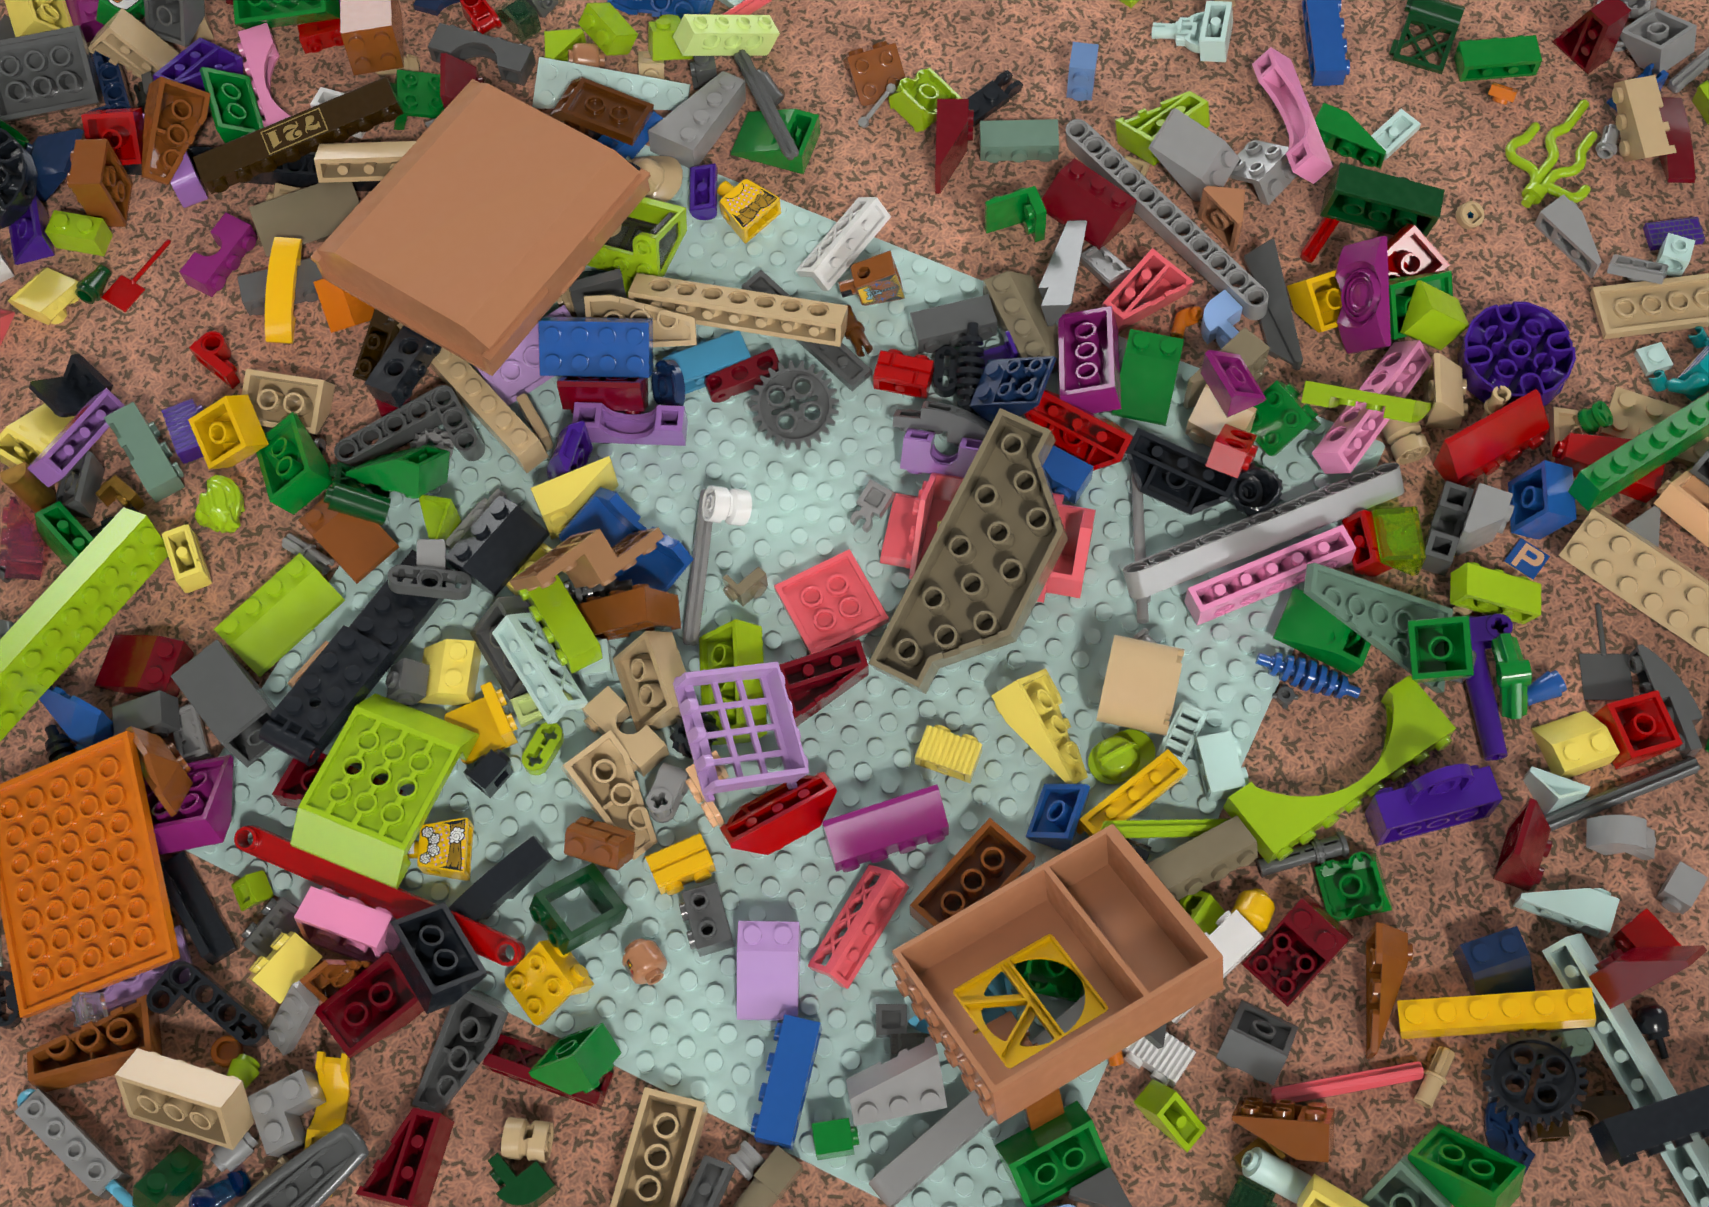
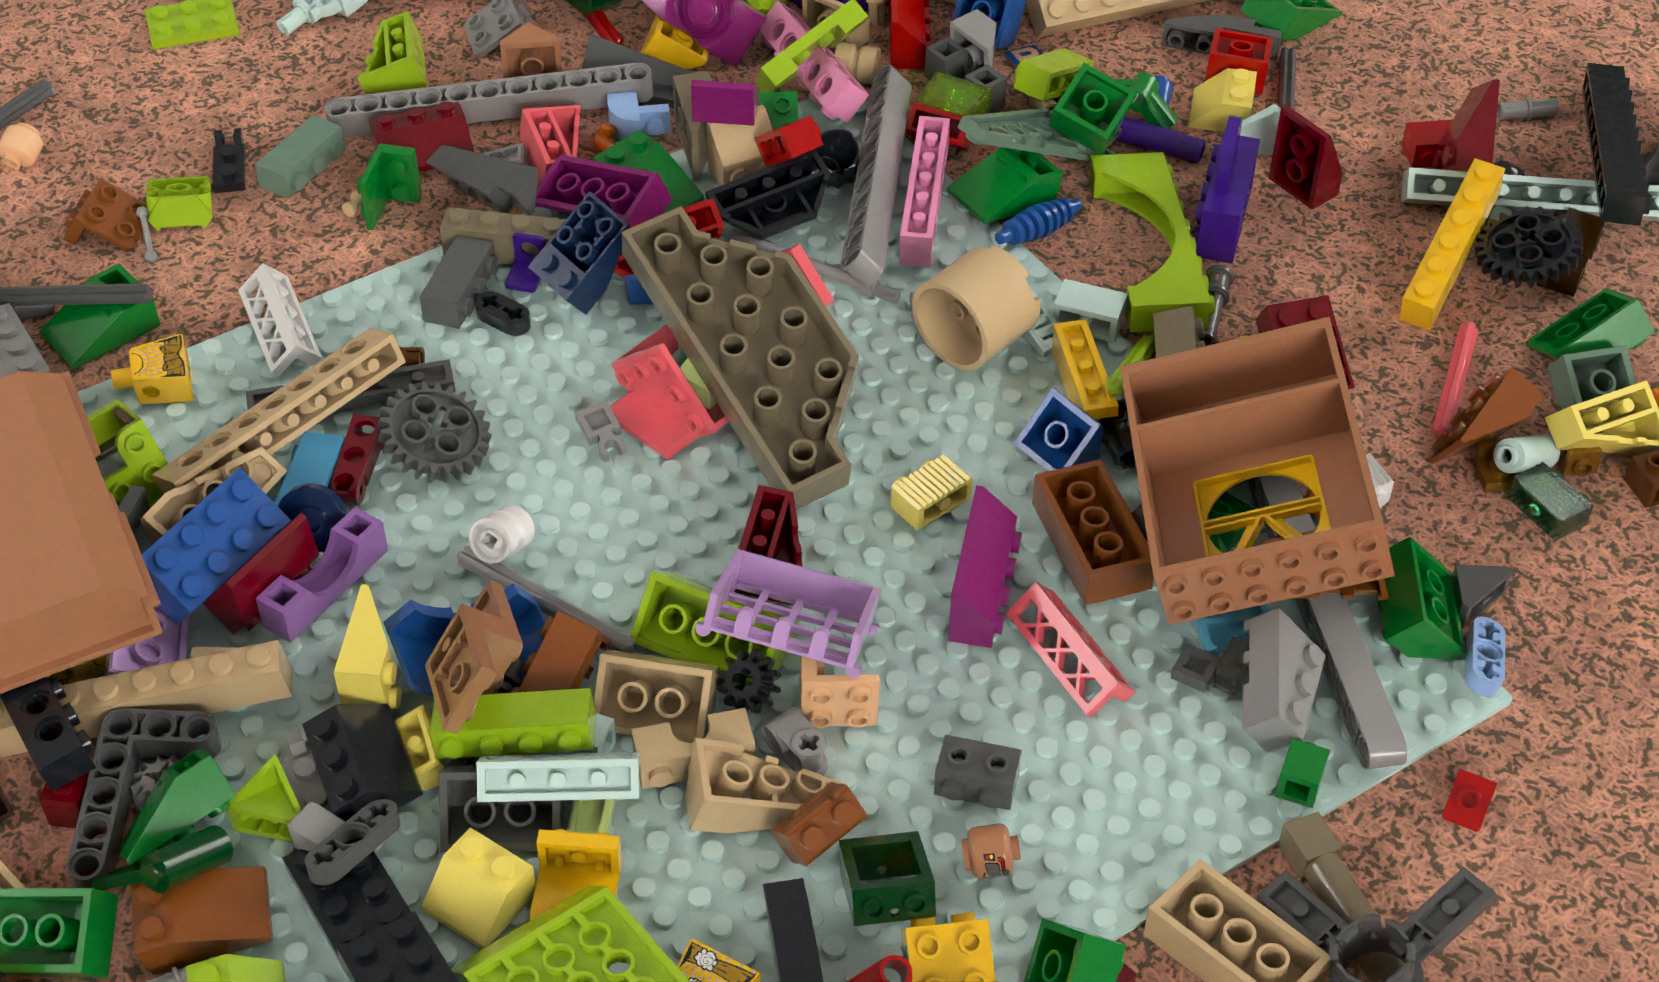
camera: 65 degrees left, 20 degrees down
(407, 681) = (460, 928): dark grey brick -> none
(490, 772) = (645, 899): black brick -> none
(548, 752) = (656, 837): lime beam -> none
(571, 451) = (311, 642): dark purple slope -> none
(681, 864) = (893, 768): yellow brick -> none
(703, 191) = (99, 391): dark purple brick -> none
(746, 1160) = (1274, 862): light grey wheel -> none
(750, 587) = (606, 576): dark tan bracket -> none
(768, 970) = (1072, 744): lavender slope -> none
(780, 815) = (905, 645): red wedge -> none
(787, 1083) = (1214, 784): blue brick -> none
(831, 603) = (686, 510): coral plate -> none
(874, 280) = (353, 305): dark orange torso -> none
(903, 373) = (478, 340): red brick -> none
(921, 455) = (581, 362): medium lavender arch -> none
(943, 417) = (568, 327): dark grey slope -> none
(953, 132) = (249, 193): dark red slope -> none
(970, 366) = (526, 289): black piece -> none
(1034, 714) = (935, 410): light yellow wedge -> none
(1082, 71) = (280, 77): medium blue brick -> none
(1121, 756) = (1024, 378): lime piece -> none
(1170, 1114) = (1417, 506): lime slope -> none
(1193, 154) = (455, 46): light grey slope -> none
(1257, 1043) = (1391, 414): dark grey slope -> none
(1285, 696) = (1043, 250): dark grey piece -> none
(1353, 887) = (1264, 282): green slope -> none
(1385, 967) = (1373, 309): dark orange wedge -> none
(1434, 1077) = (1483, 320): tan axle -> none
(1496, 964) = (1398, 235): dark blue slope -> none
(1505, 1136) = (1549, 303): dark blue tile -> none
(1580, 909) = (1377, 168): light aqua slope -> none
(1605, 674) = (1163, 61): dark grey piece -> none
(1621, 834) = (1329, 108): light grey brick -> none
(1681, 888) = (1396, 104): light grey brick -> none

